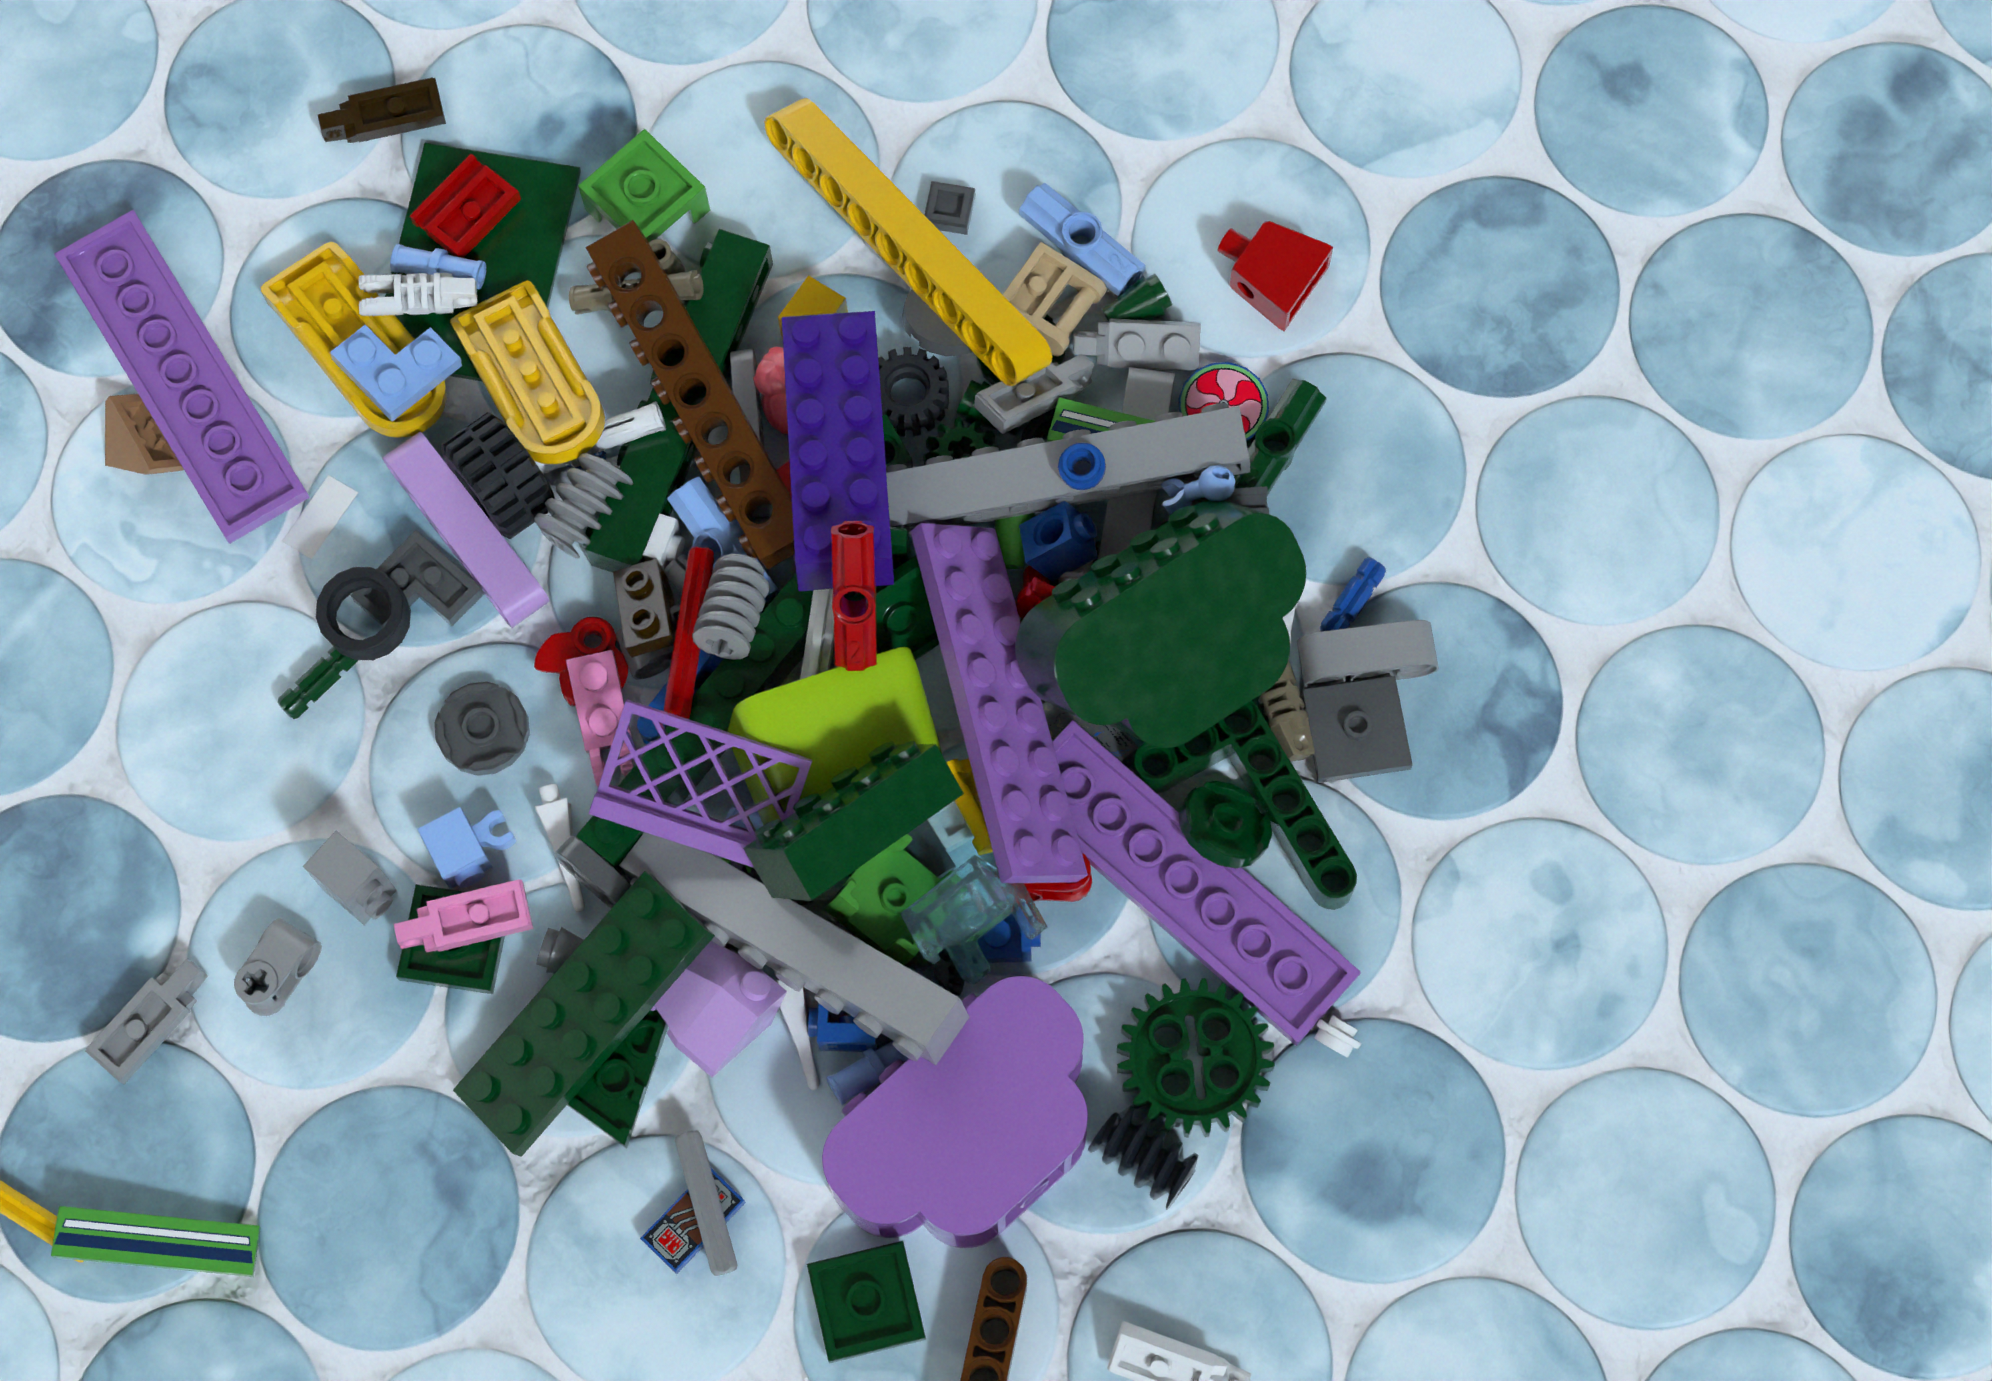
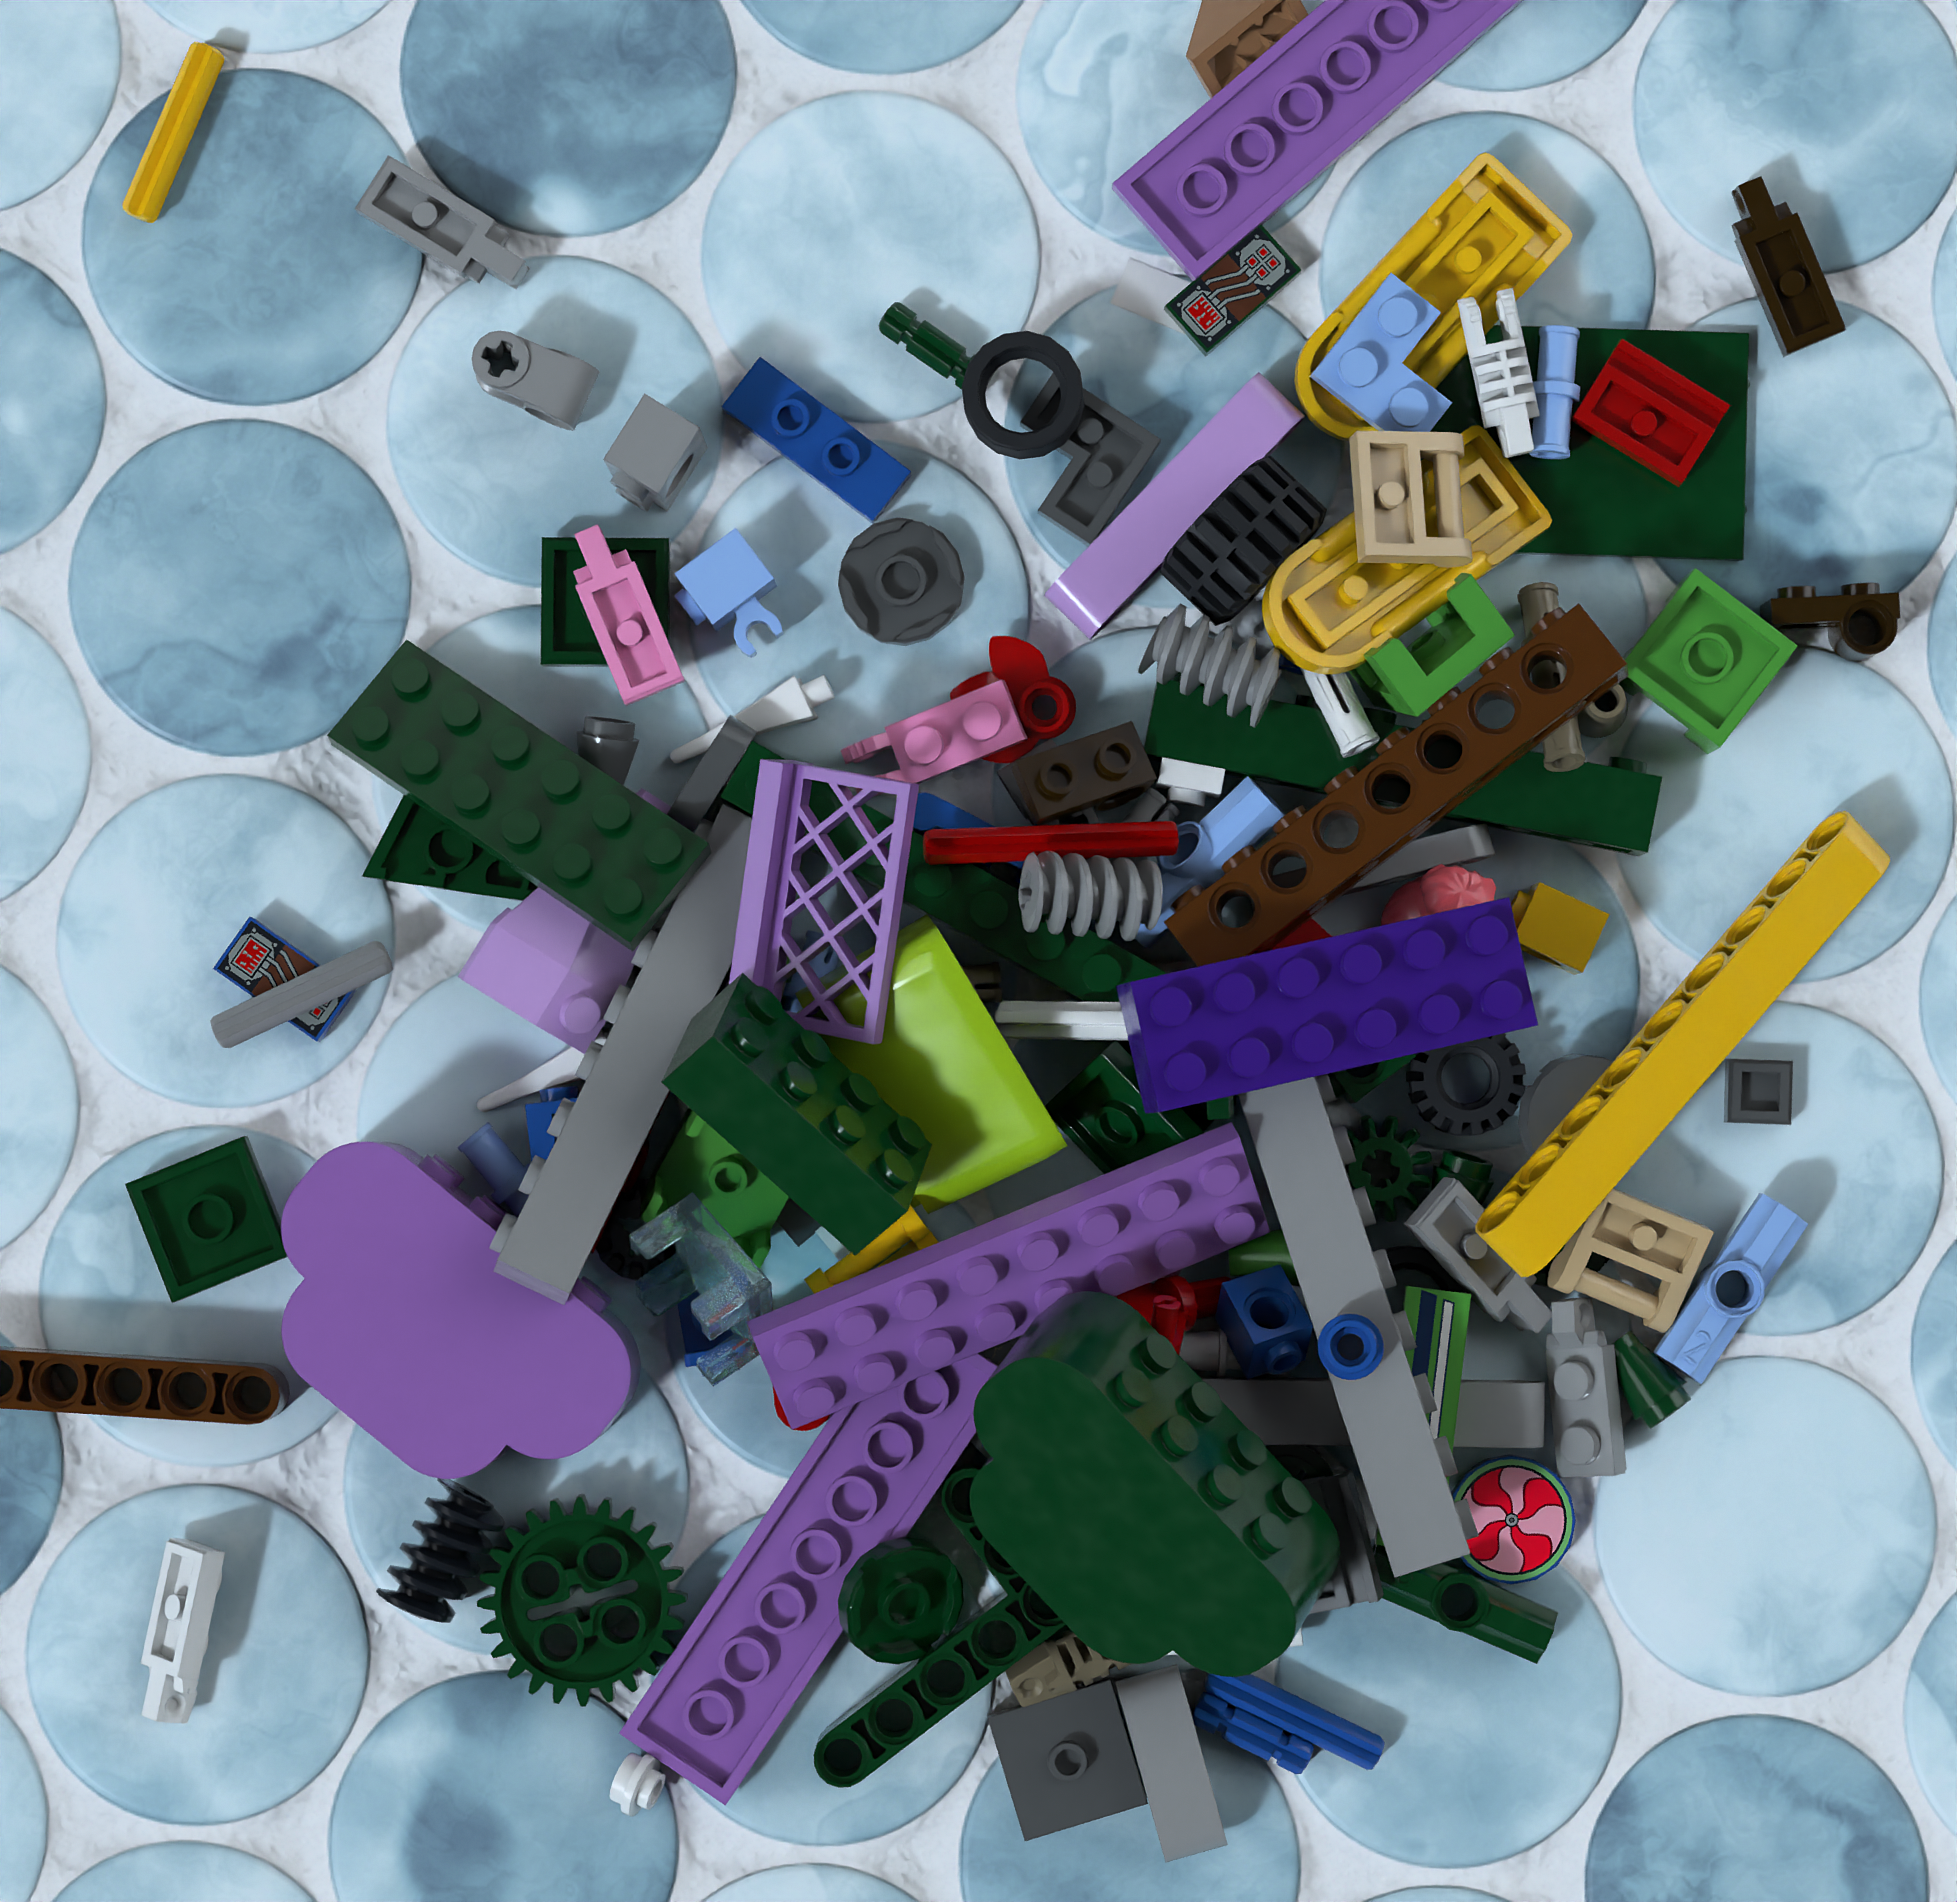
camera: 80 degrees right, 15 degrees up
(155, 1241) = (157, 301): bright green tile -> none
(320, 472) = (1232, 290): none -> tile
(366, 773) = (816, 440): none -> blue plate
(490, 366) = (1392, 501): none -> tan plate
(603, 355) = (1460, 640): none -> bright green panel
(632, 111) = (1801, 609): none -> dark brown plate
(854, 571) = (1098, 1068): red piece -> none
(1214, 484) = (1352, 1527): light blue arm -> none
(1275, 269) = (1725, 1567): red torso -> none
(1343, 568) = (1298, 1717): none -> blue axle

